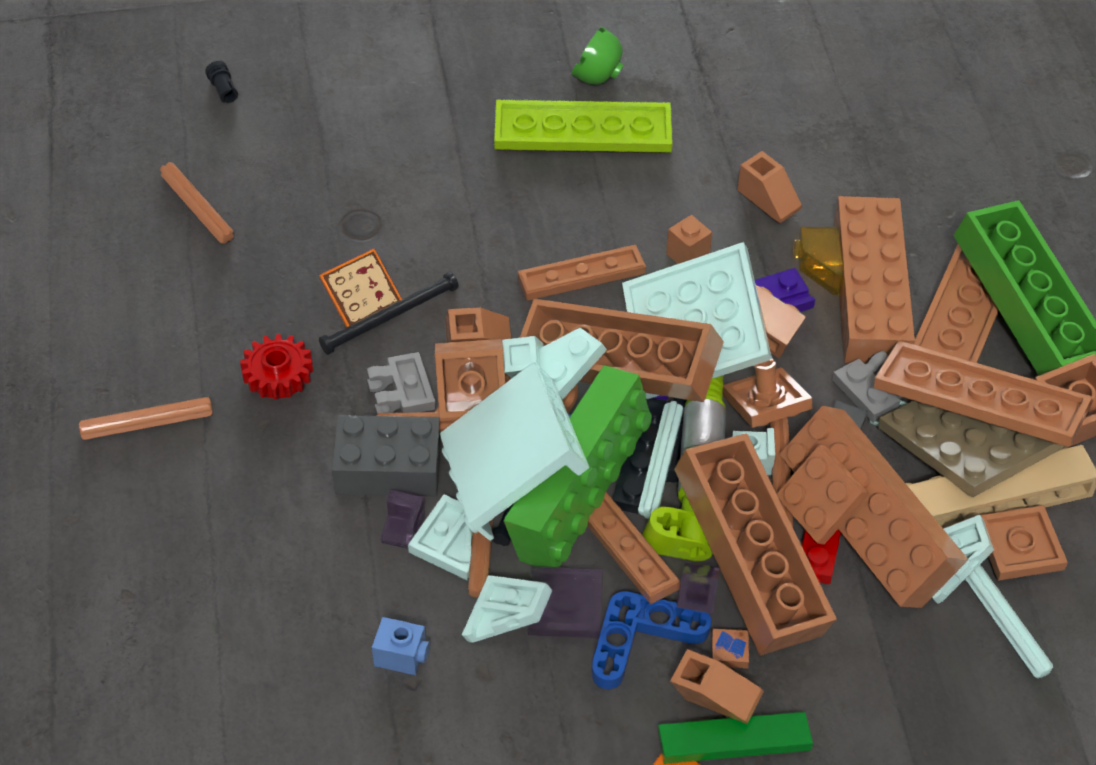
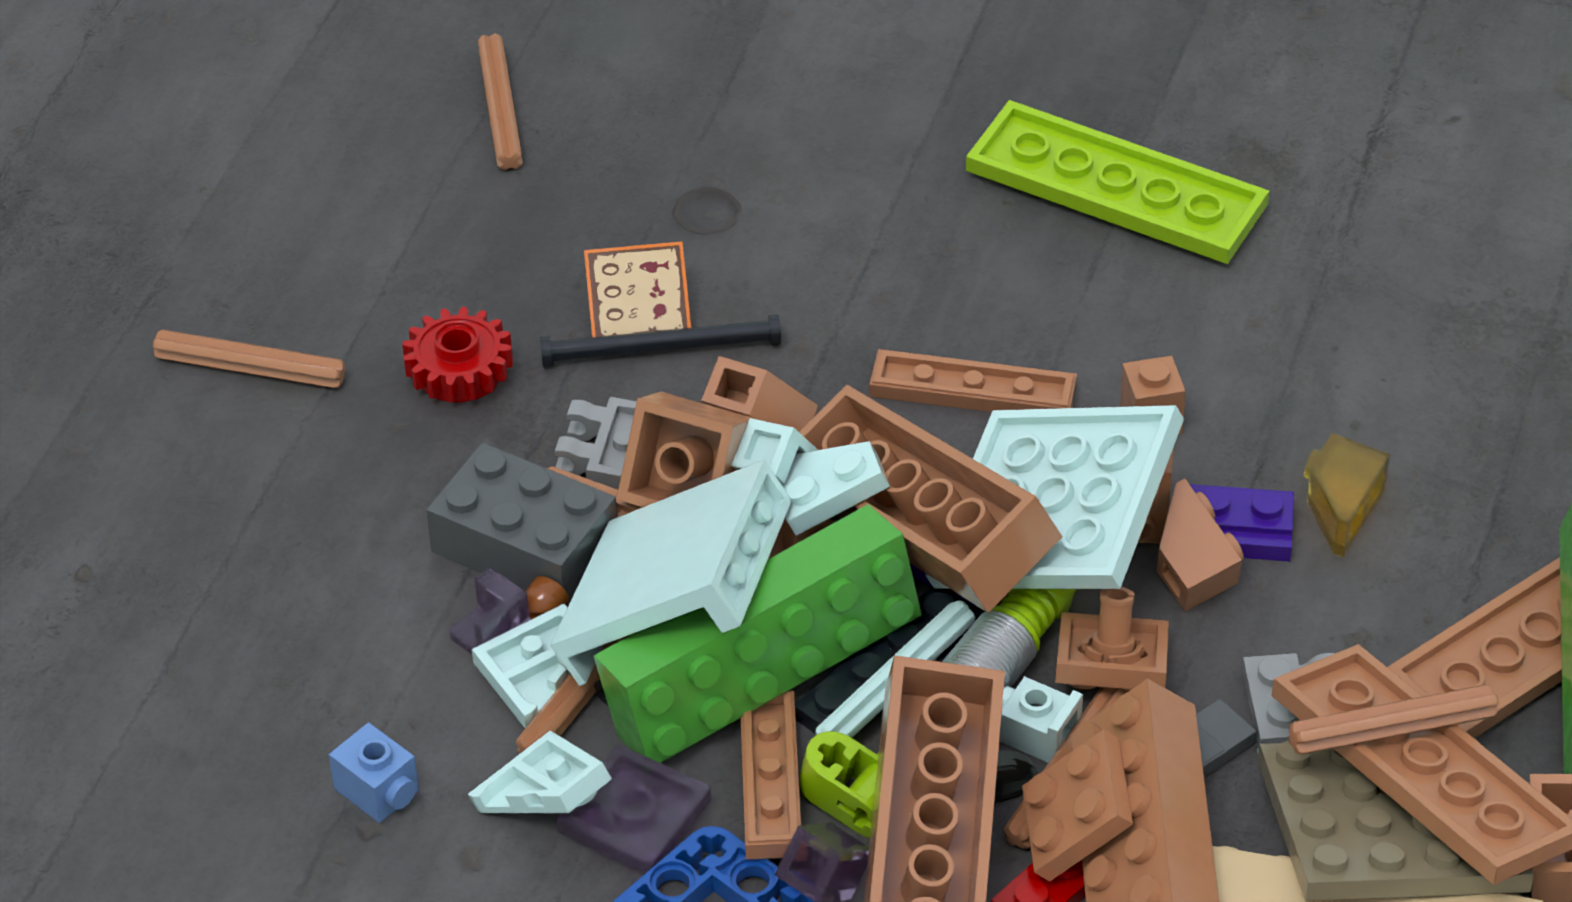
camera: 30 degrees right, 5 degrees down
(431, 492) = (545, 595): none -> dark orange hinge
(600, 59) = (1201, 90): bright green cylinder -> none
(768, 187) = (1330, 361): nougat slope -> none
(875, 277) = (1400, 542): nougat brick -> none
(956, 376) = (1392, 719): none -> nougat axle

